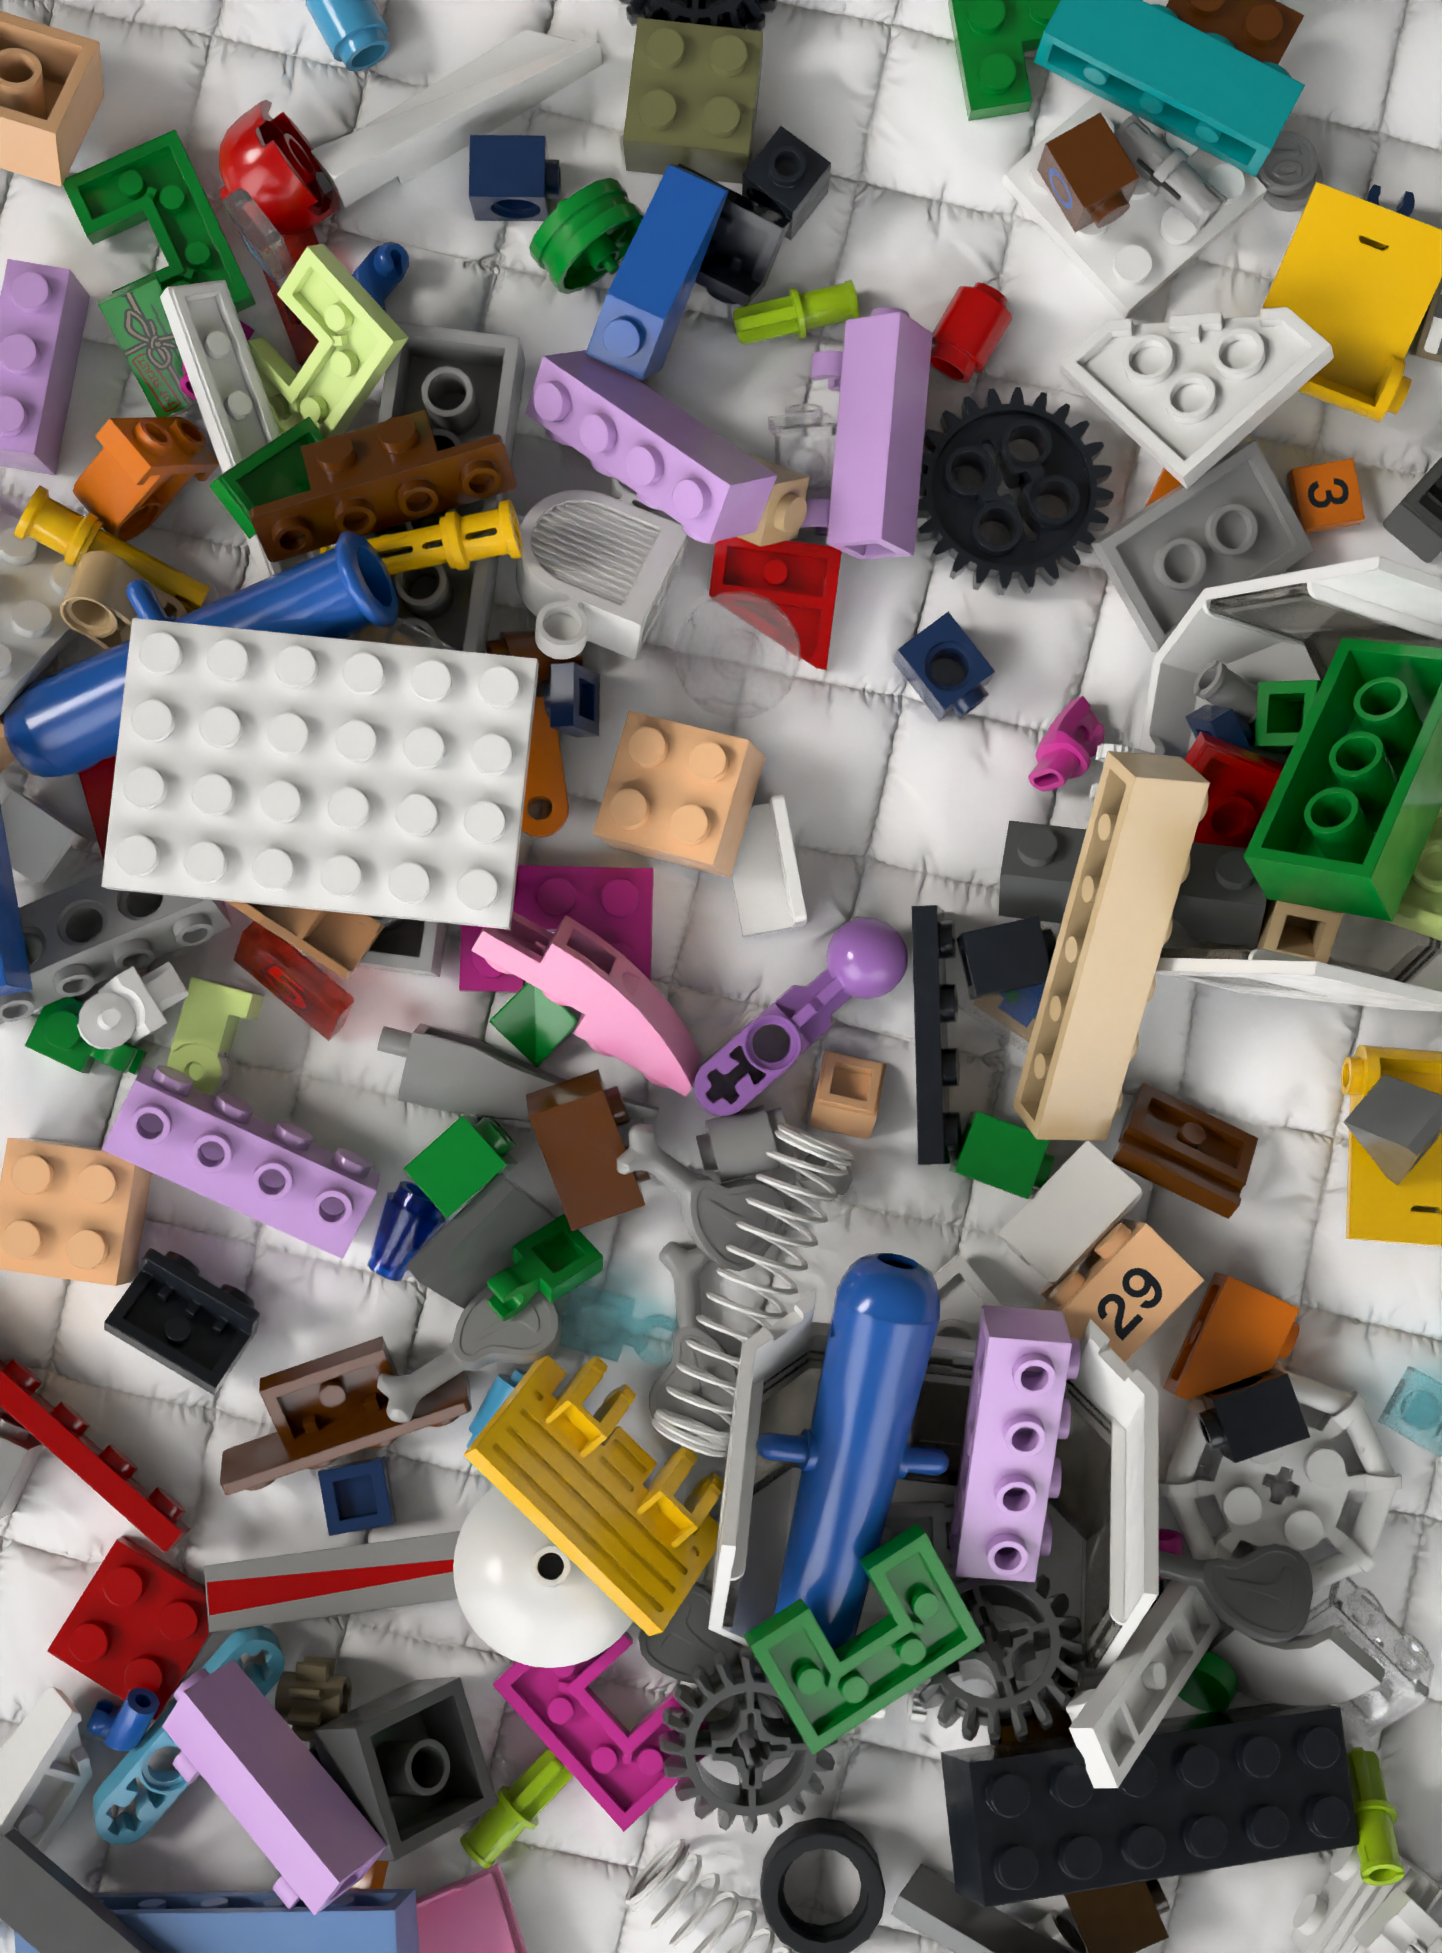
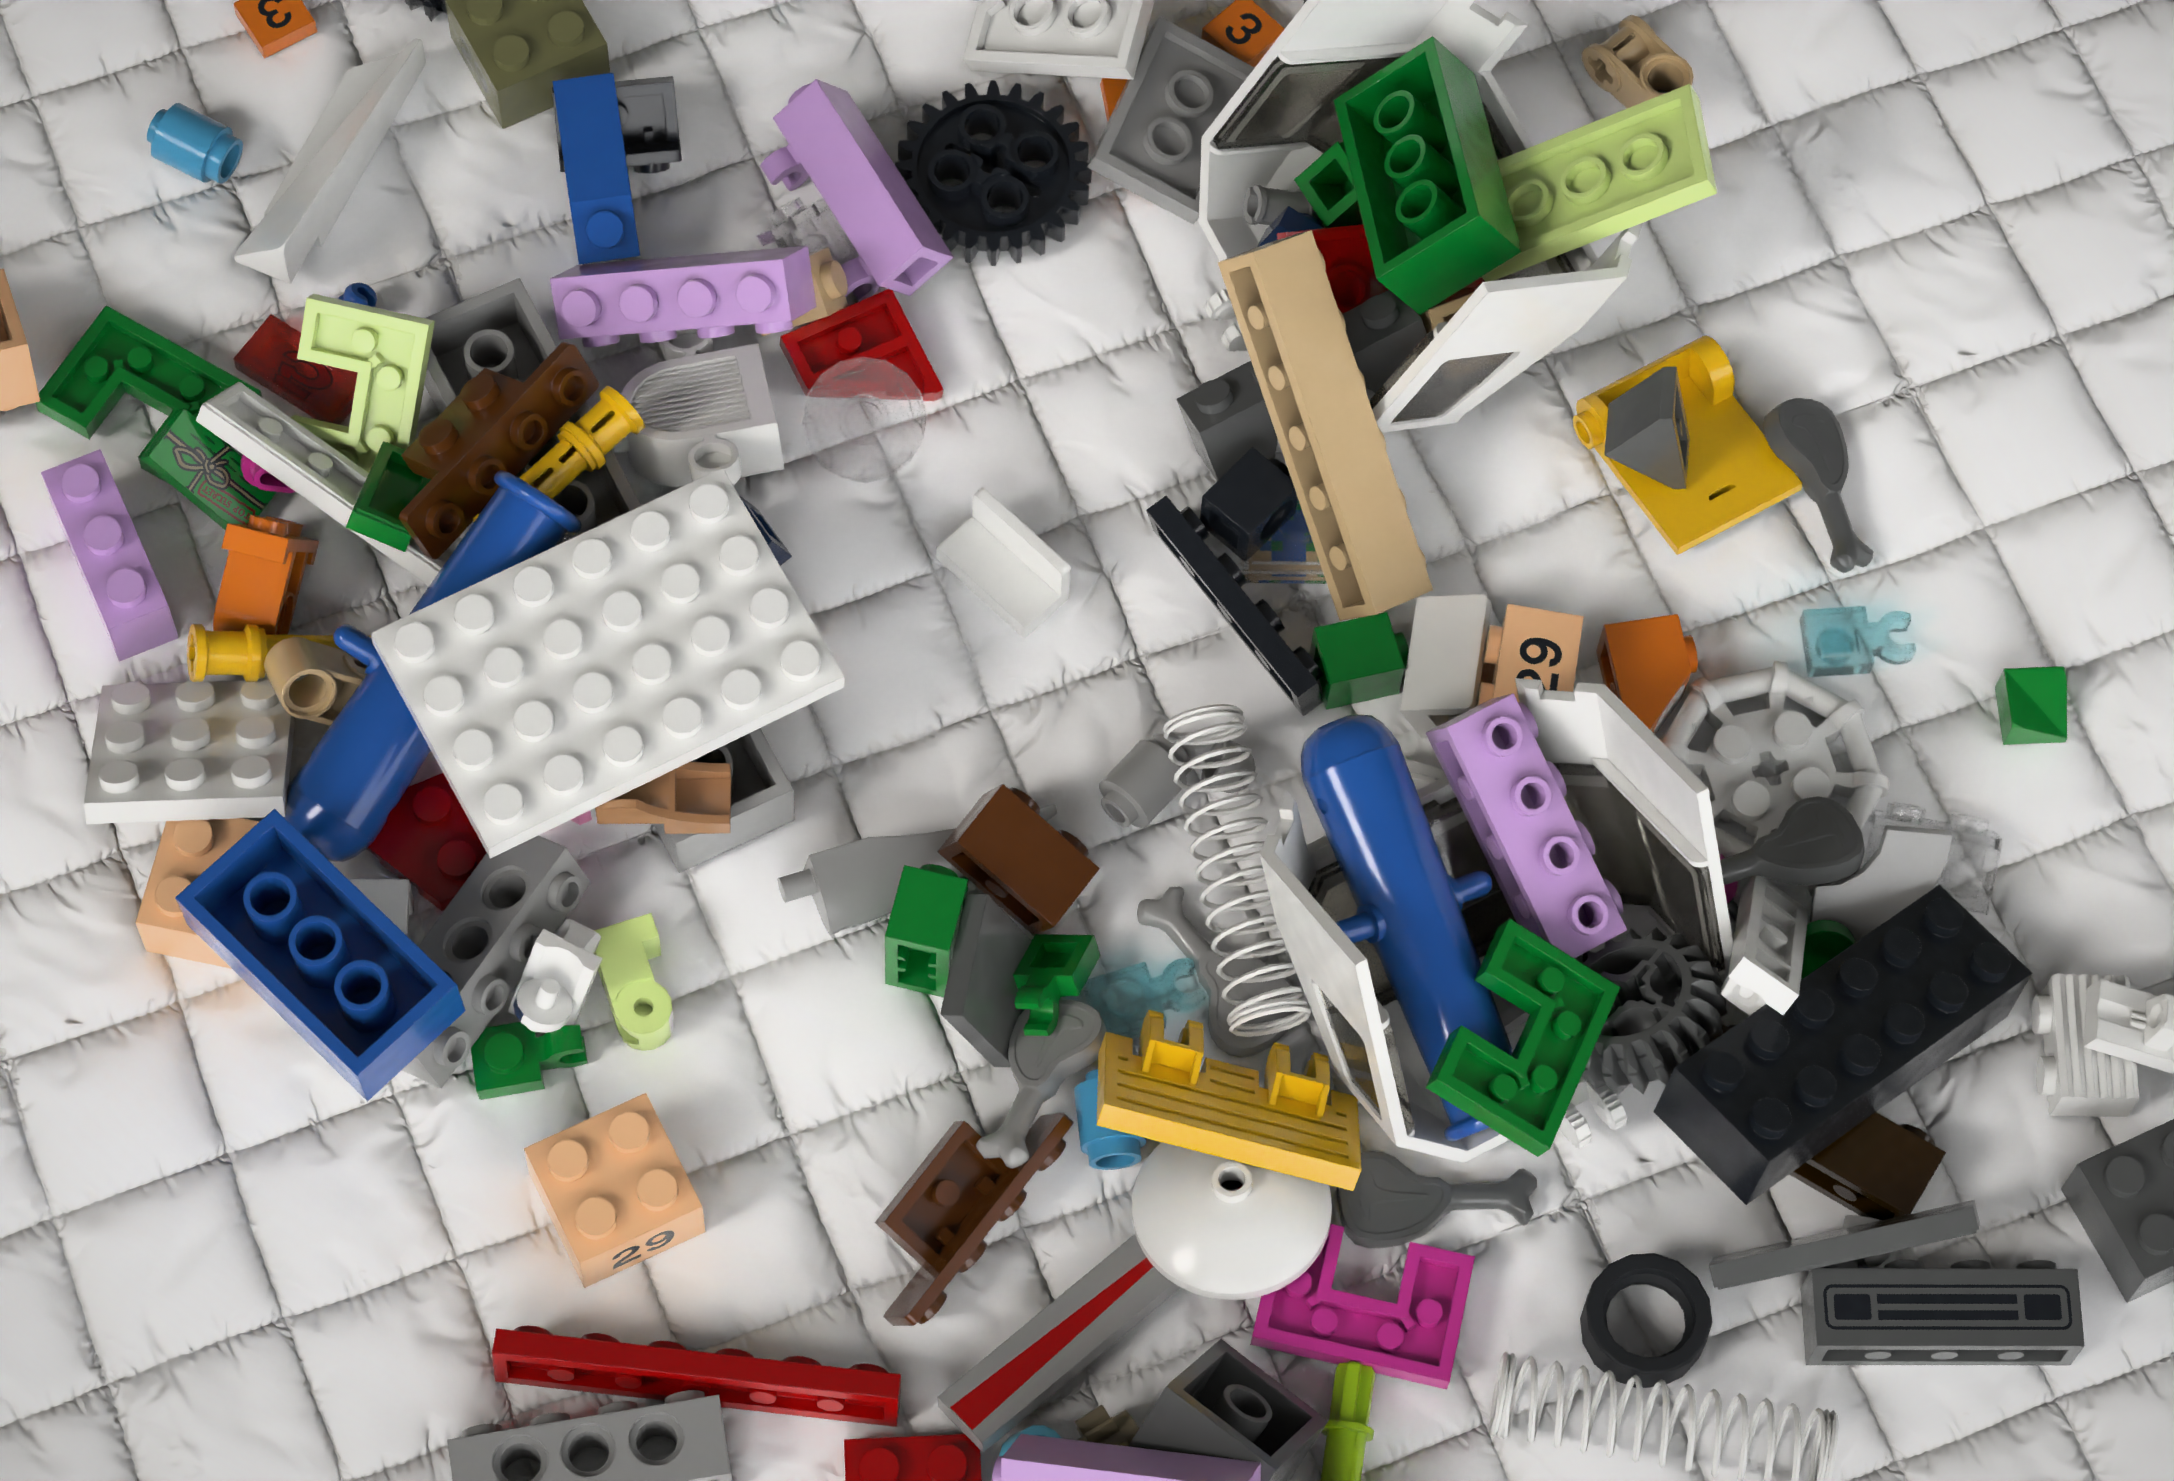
camera: 40 degrees left, 20 degrees down
(184, 1319) = (775, 1214): black bracket -> none
(243, 1160) = (738, 1044): lavender brick -> none
(260, 236) = (255, 331): clear tile -> none
(276, 169) = (217, 290): red cylinder -> none
(294, 979) = (674, 890): clear red tile -> none
(357, 1496) = (1026, 1267): dark blue plate -> none
(404, 1229) = (911, 1028): clear blue cone -> none
(512, 177) = (417, 181): dark blue brick -> none
(534, 1023) = (902, 797): green slope -> none
(586, 235) = (516, 181): green wheel -> none
(605, 900) = (888, 678): dark pink plate -> none
(617, 1002) = (963, 734): bright pink slope -> none
(679, 793) = (895, 545): light nougat brick -> none
(707, 1206) = (1152, 842): light grey piece -> none
(720, 1740) = (1469, 1181): dark grey gear -> none
(787, 179) = (647, 45): black brick -> none
(796, 313) = (724, 146): lime axle -> none
(847, 1095) = (1197, 687): light nougat slope -> none
(862, 961) = (1137, 582): medium lavender beam -> none
(945, 640) = (1033, 307): dark blue brick -> none
(969, 331) = (875, 76): red brick -> none
(1067, 746) = (1179, 331): dark pink piece -> none
(1185, 1150) = (1501, 561): reddish brown plate -> none
(1252, 1416) = (1703, 712): black brick -> none
(1374, 1820) = (2048, 966): lime axle -> none

